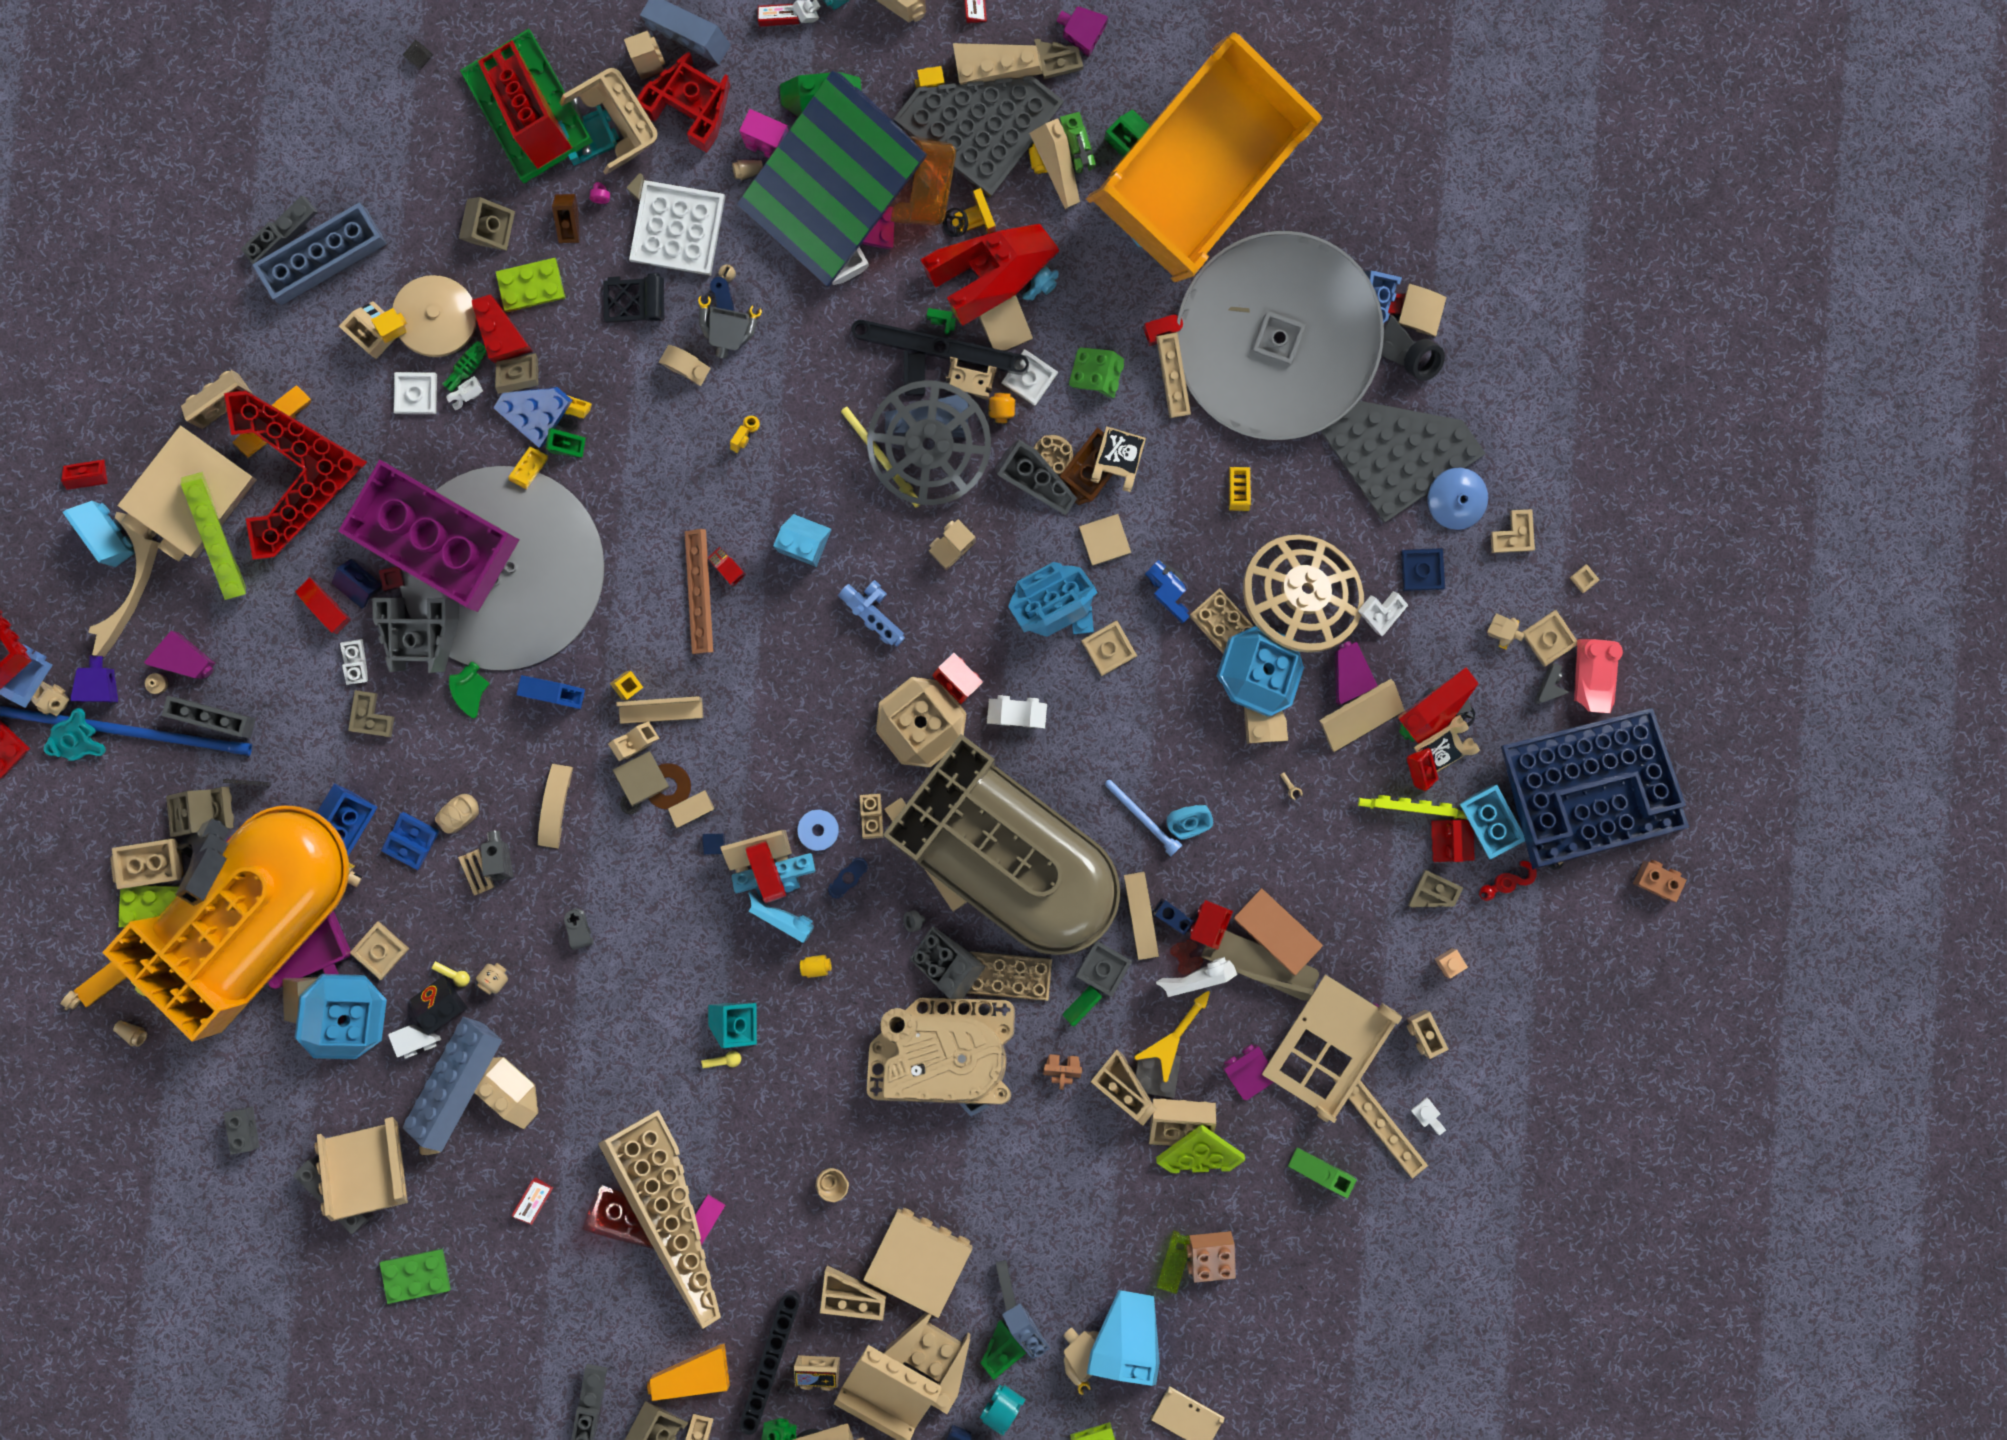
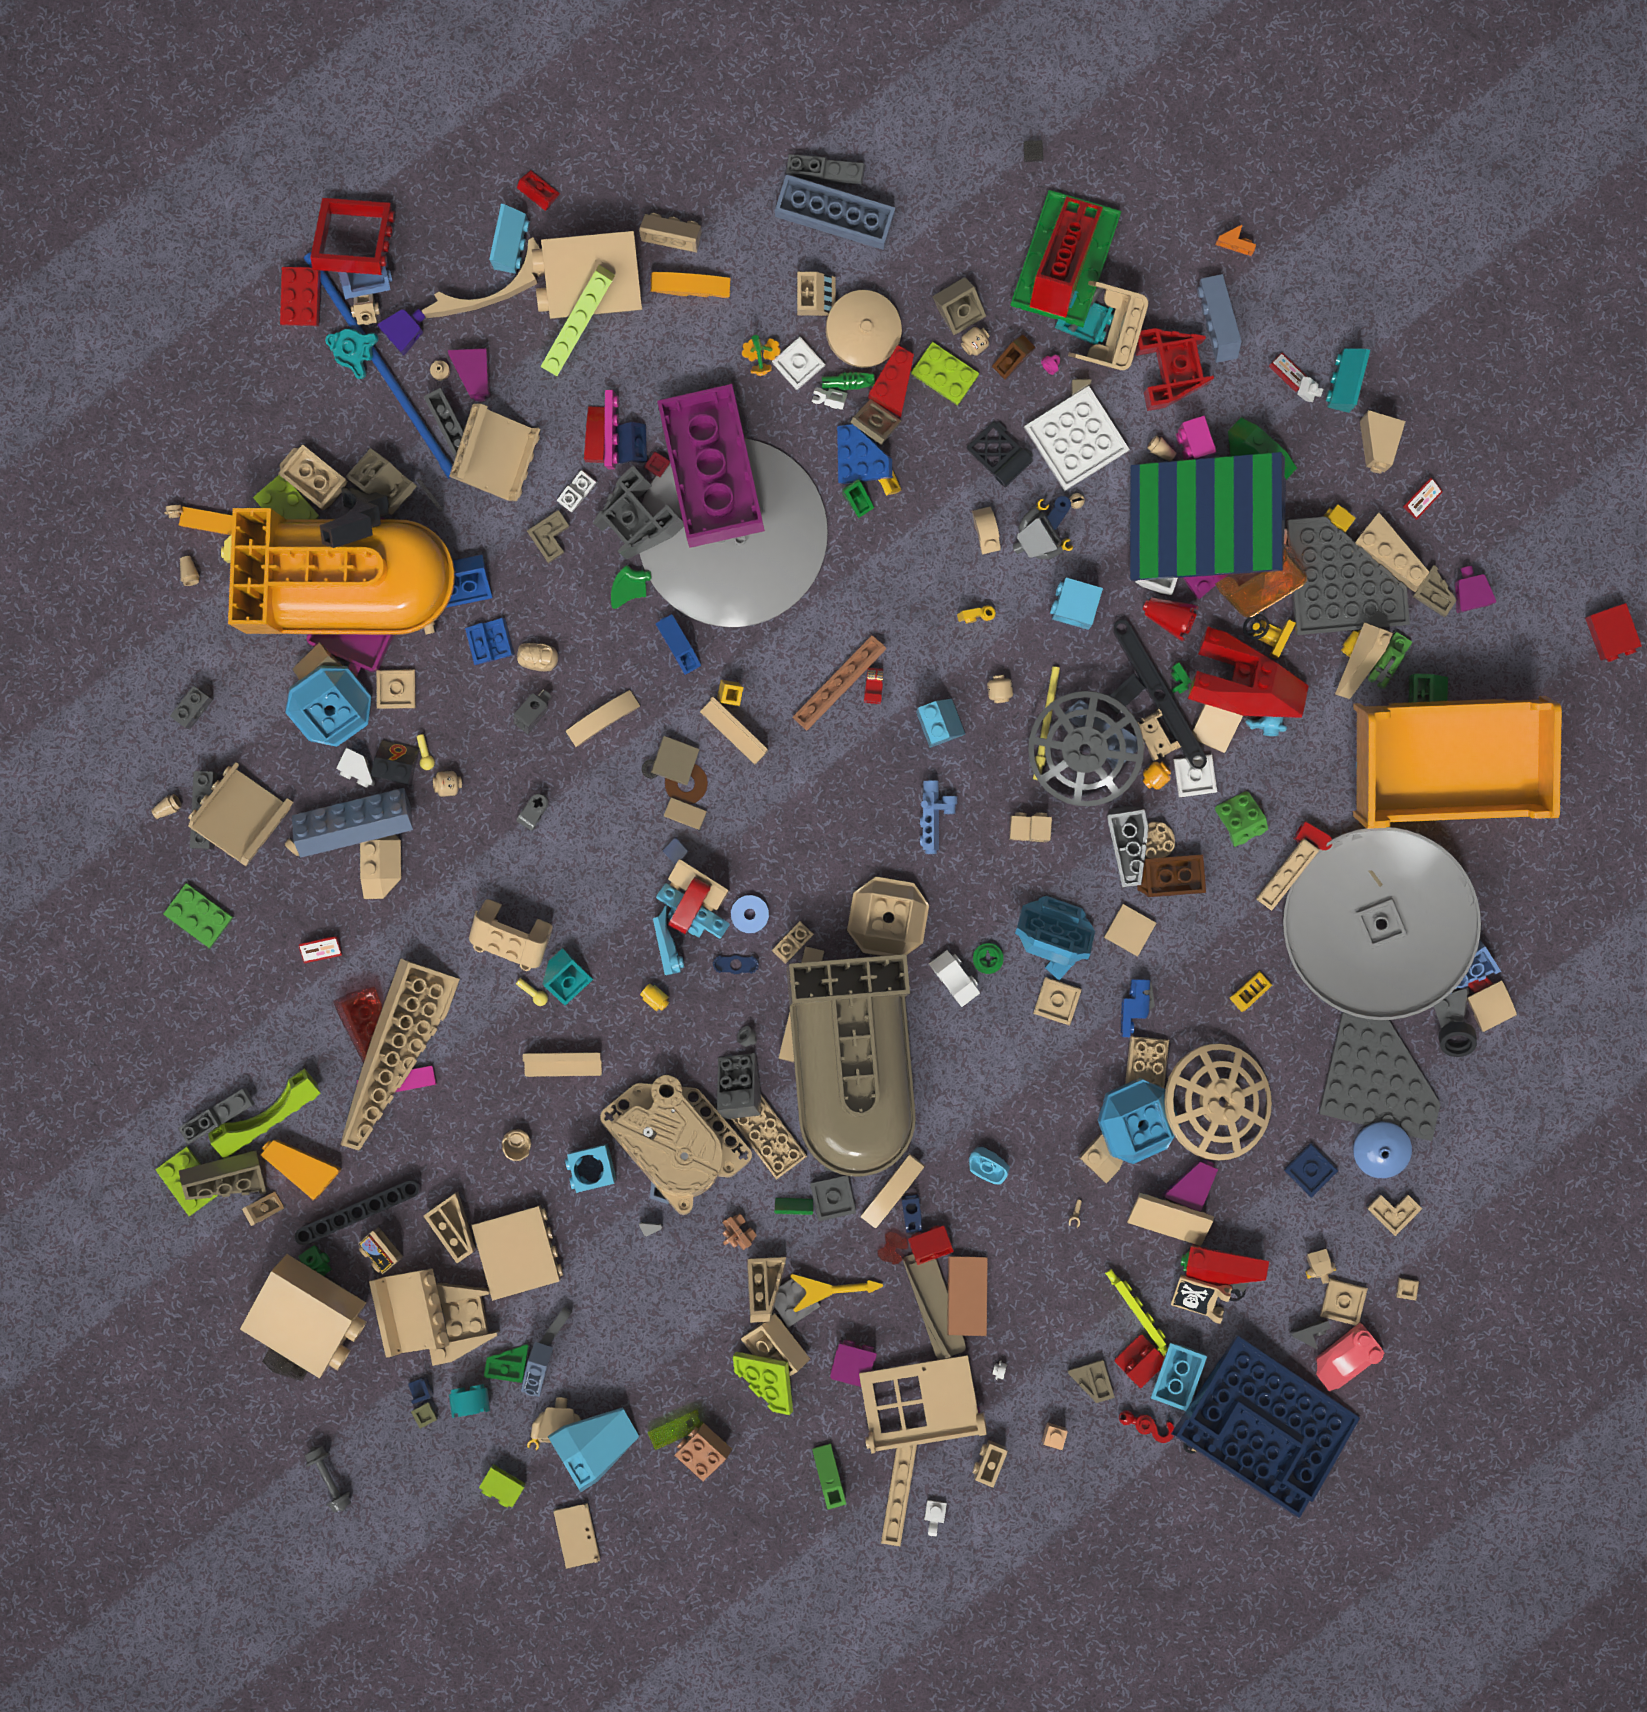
camera: 45 degrees right, 0 degrees up
(260, 700) = (494, 453): none -> tan panel
(303, 1222) = (167, 806): none -> tan cone
(323, 584) = (611, 437): none -> dark pink plate
(324, 465) = (689, 352): red wedge -> none
(371, 420) = (753, 349): none -> light orange plant
(389, 325) = (830, 307): yellow brick -> none
(469, 856) = (500, 707): tan tile -> none
(526, 237) = (975, 341): none -> tan head
(528, 467) = (817, 488): yellow plate -> none
(616, 1410) = (232, 1136): none -> lime arch
(634, 741) = (696, 733): tan brick -> none
(645, 54) = (1176, 308): tan wedge -> none
(661, 1045) = (506, 941): none -> tan container
(801, 1088) = (563, 1064): none -> tan panel
(806, 346) = (1076, 603): none -> medium azure brick
(820, 468) = (1000, 689): none -> tan head
(886, 280) = (1171, 615): none -> red cone
(922, 1135) = (606, 1177): none -> medium azure brick
(957, 678) = (941, 915): brick -> none
(995, 1137) = (650, 1228): none -> light grey slope
(1026, 682) = (994, 965): none -> green gear
(1119, 456) = (1197, 888): flag -> none
(1169, 844) = (959, 1167): light blue piece -> none
(1215, 973) = (899, 1277): white slope -> none
(1359, 959) = (999, 1370): none -> white plate
(1383, 615) = (1252, 1171): white plate -> none
(1422, 769) = (1171, 1295): red slope -> none
(1660, 881) = (1243, 1531): nougat brick -> none

